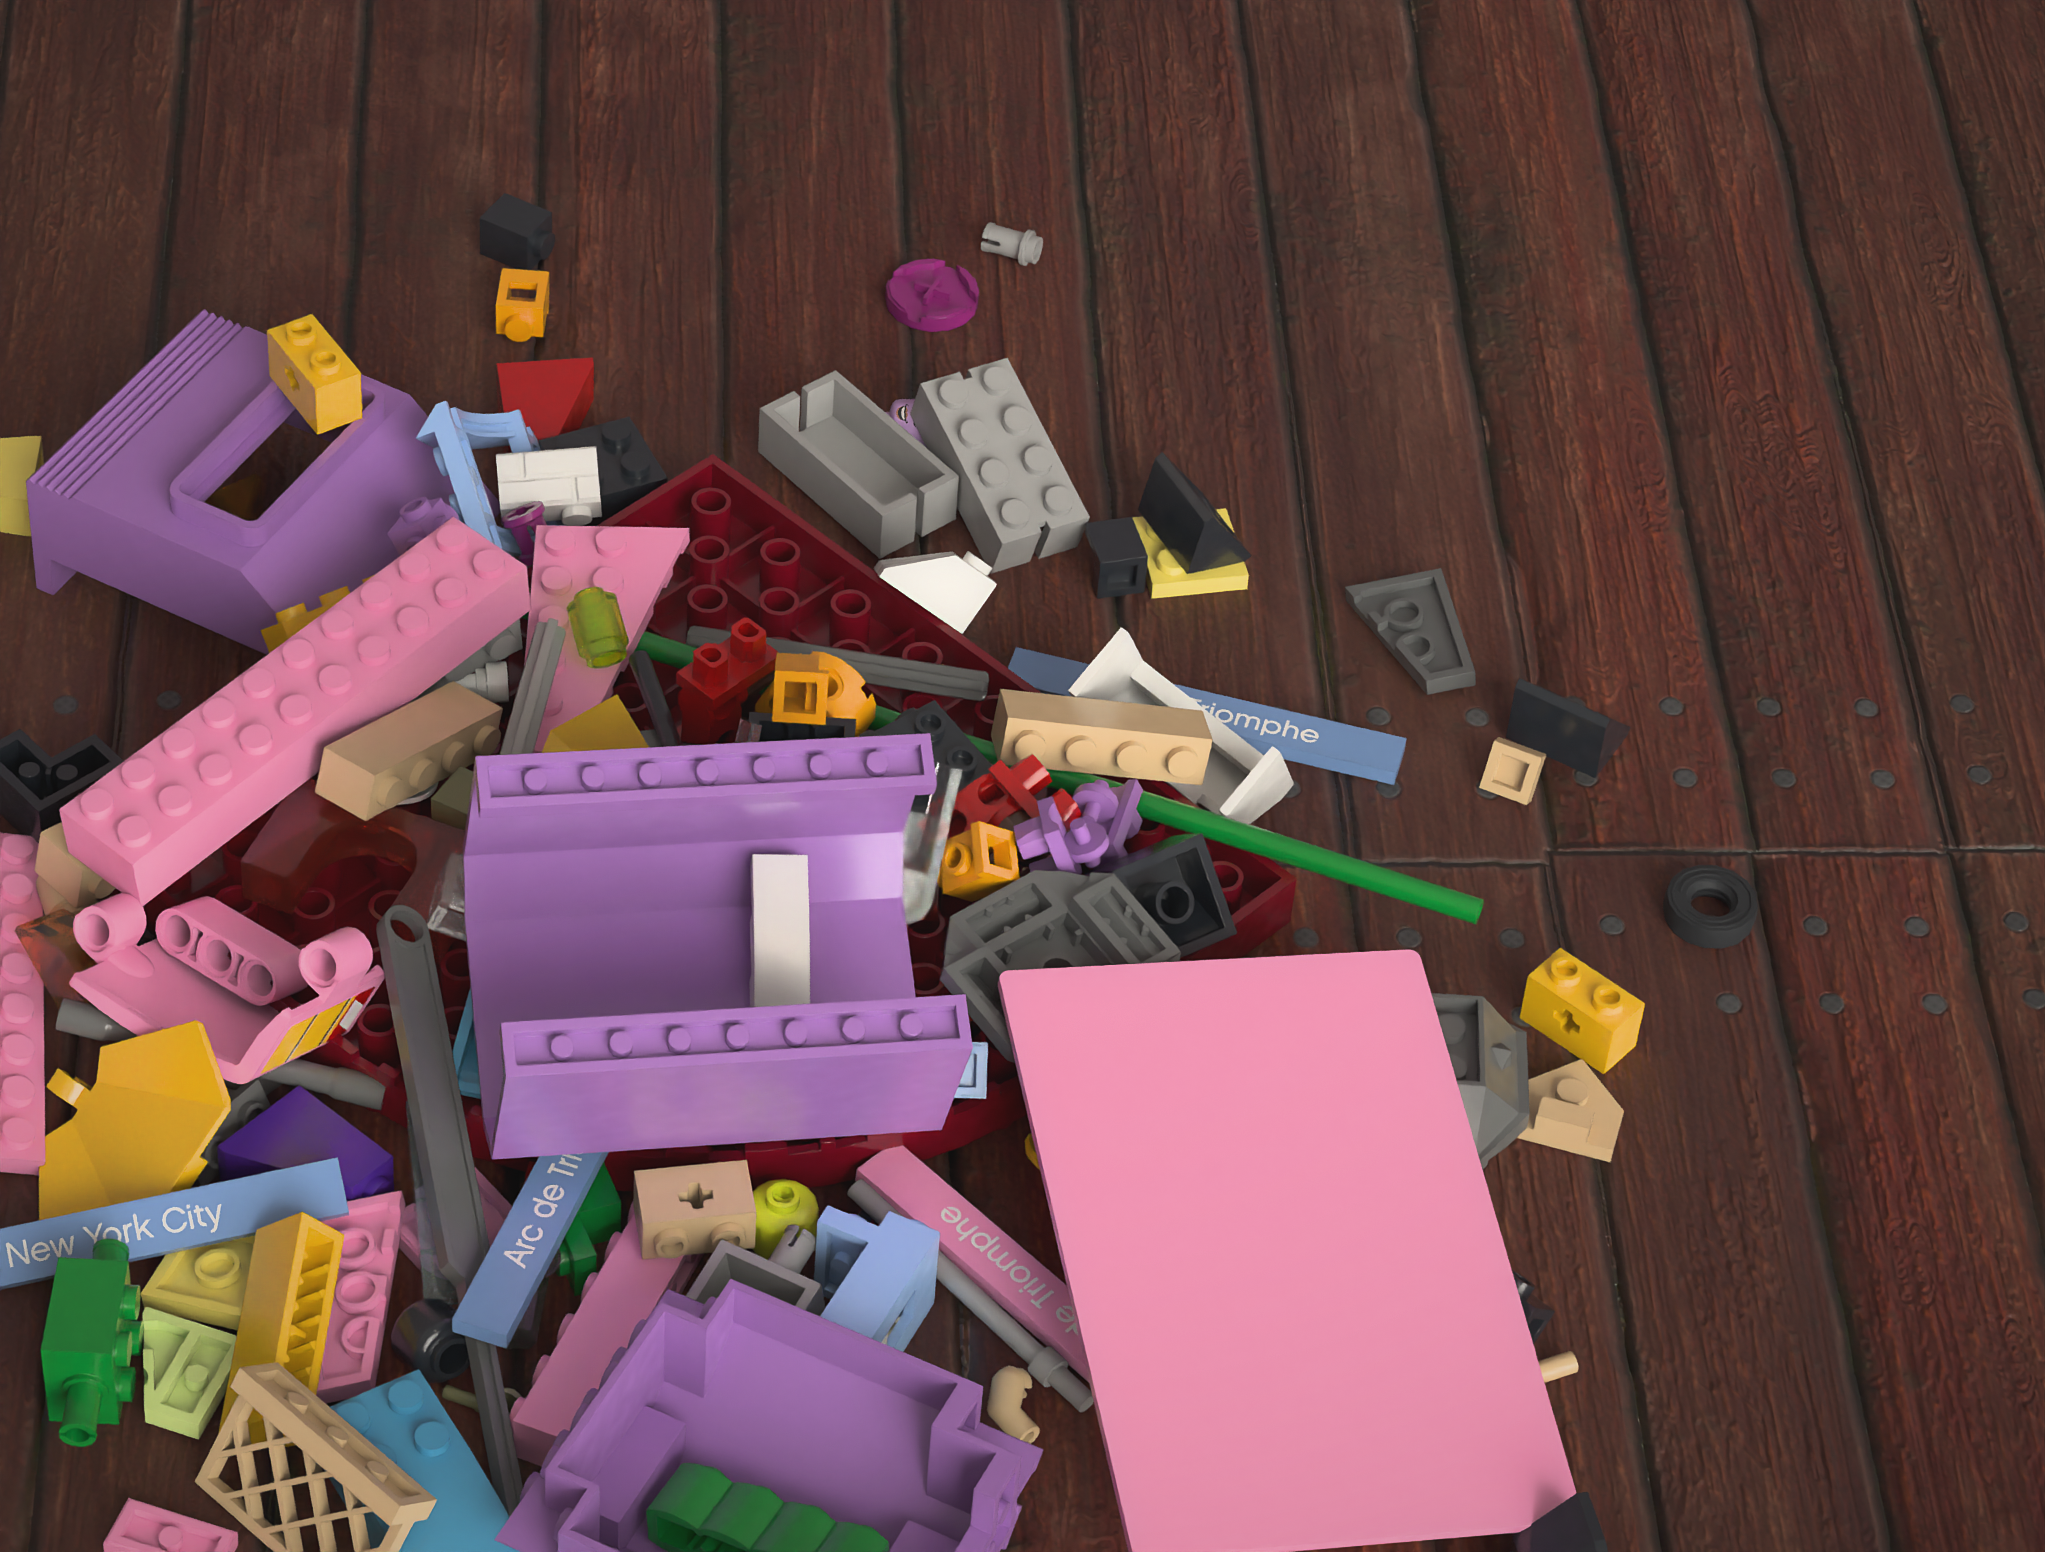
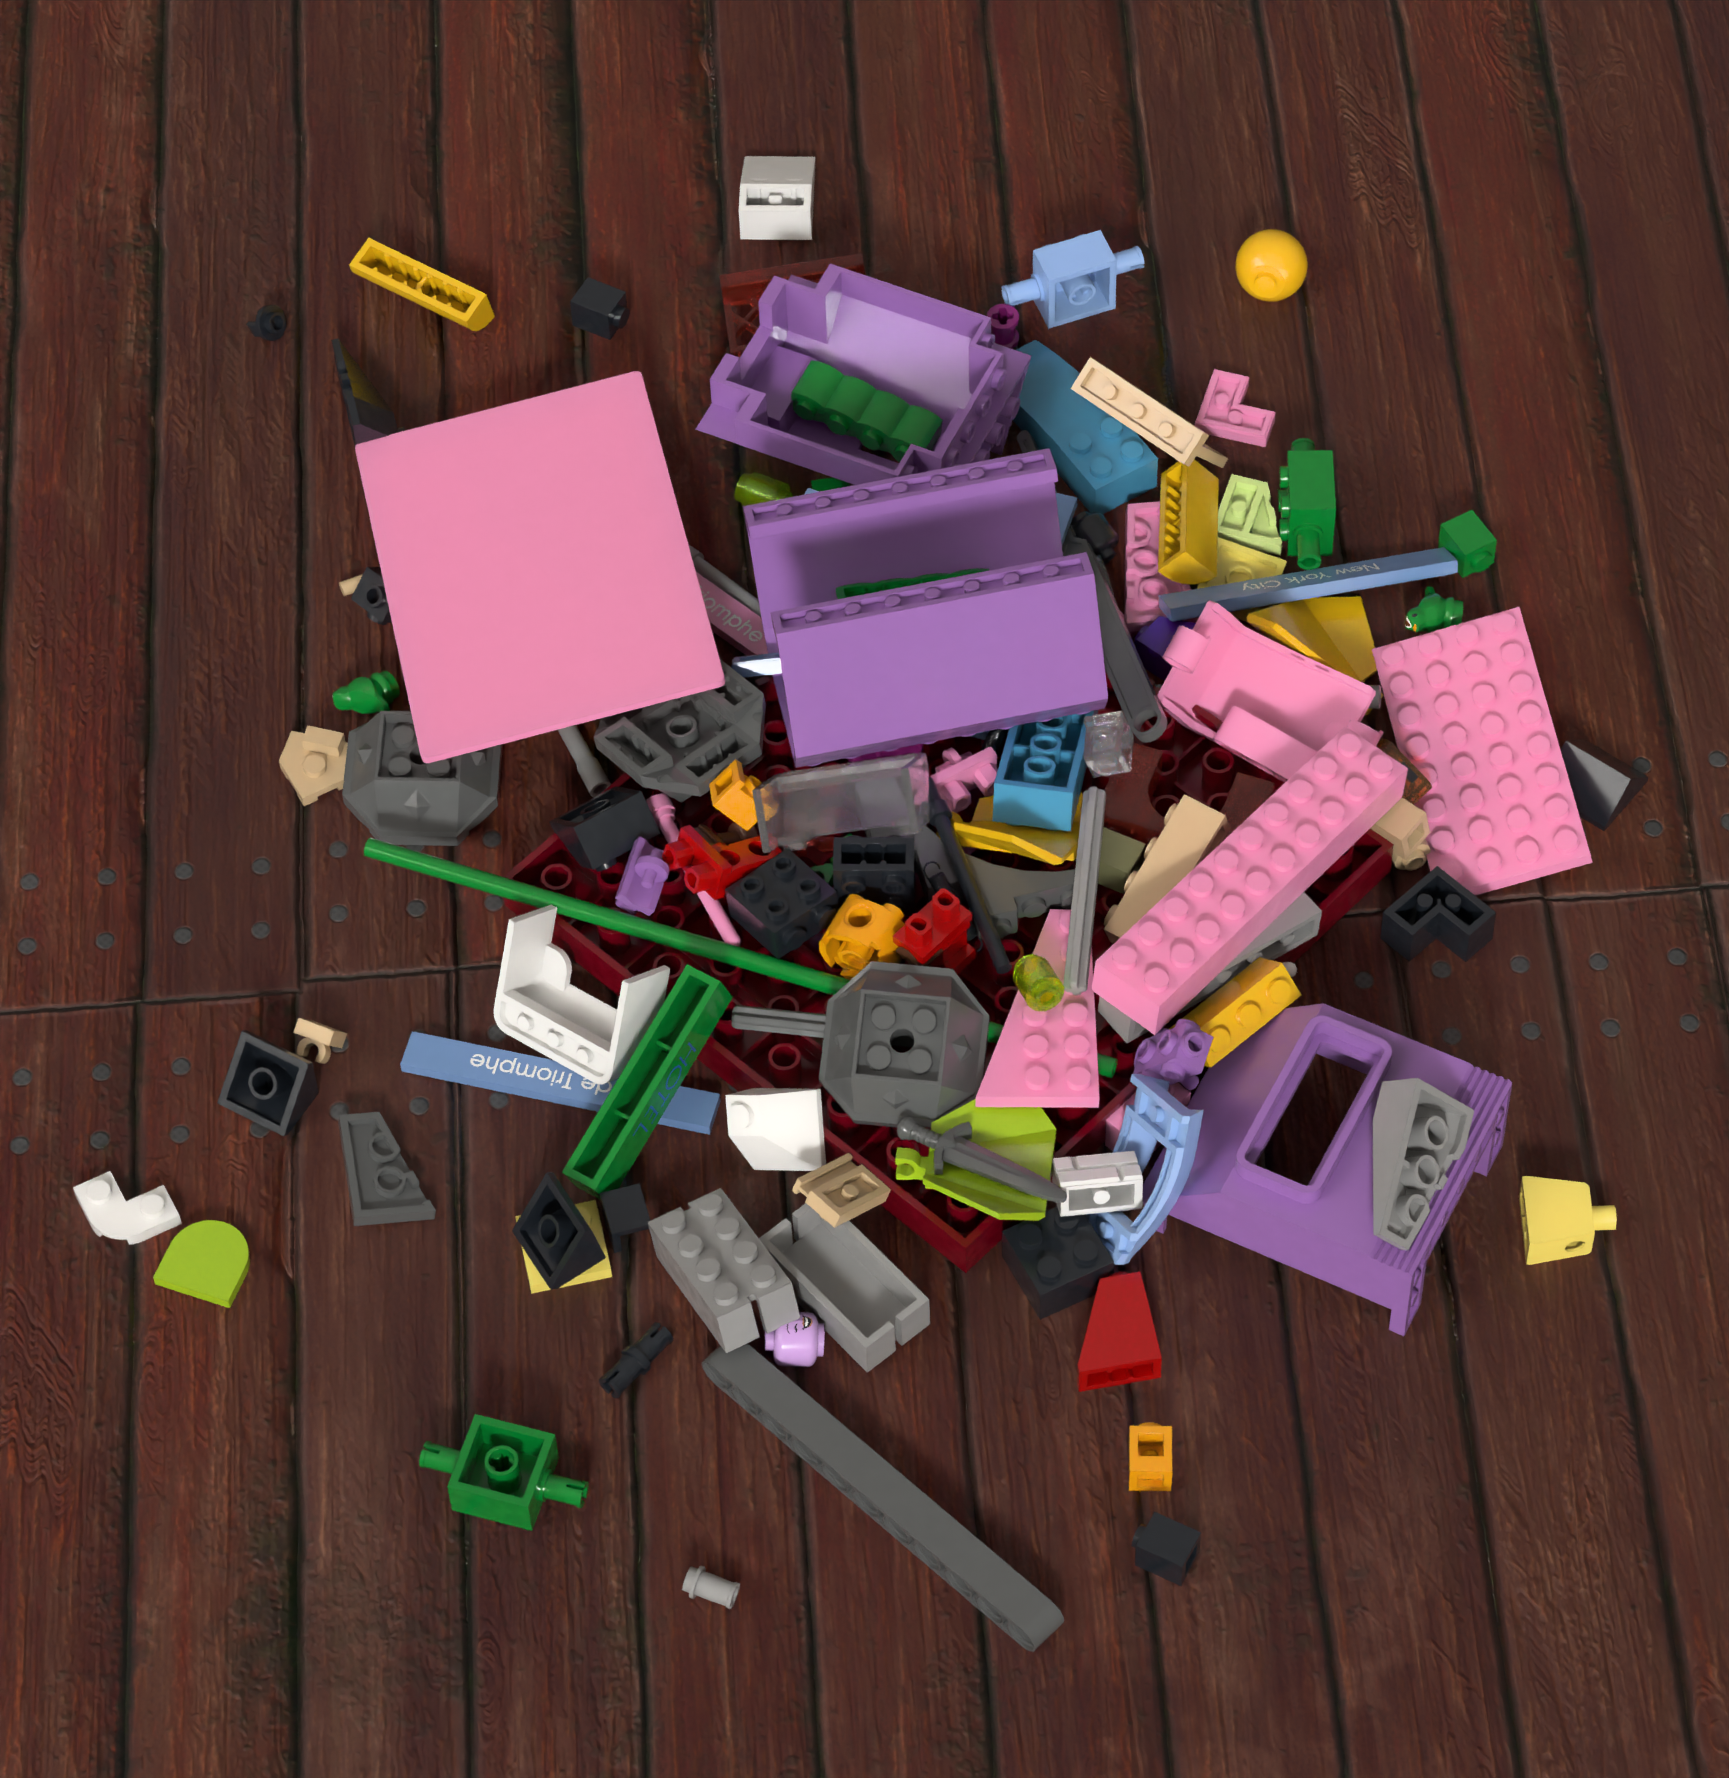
camera: 175 degrees left, 10 degrees up
(174, 392) = (1413, 1146): none -> light grey wedge
(314, 374) = (1294, 1139): yellow brick -> none
(518, 521) = (1117, 1133): magenta bush -> none
(686, 468) = (1014, 1133): none -> lime panel
(712, 499) = (959, 1151): none -> dark grey sword
(786, 584) = (932, 1077): none -> dark grey piece
(795, 280) = (885, 1495): none -> dark grey beam
(799, 689) = (876, 871): light orange brick -> none
(858, 498) = (841, 1190): none -> tan plate
(932, 295) = (784, 1525): magenta tile -> none
(1005, 1403) = (717, 533): tan arm -> none
(1067, 637) = (648, 1083): none -> green brick
(1068, 849) = (678, 809): medium lavender hips -> none
(1099, 437) = (636, 1360): none -> black pin
(1102, 736) = (628, 948): tan brick -> none
(1242, 327) = (503, 1472): none -> green brick
(1515, 1182) = (367, 694): none -> green animal
(1582, 1010) = (298, 826): yellow brick -> none
(1611, 563) = (206, 1262): none -> lime tile
(1714, 883) = (184, 957): black tyre -> none
(1724, 612) = (122, 1219): none -> white plate

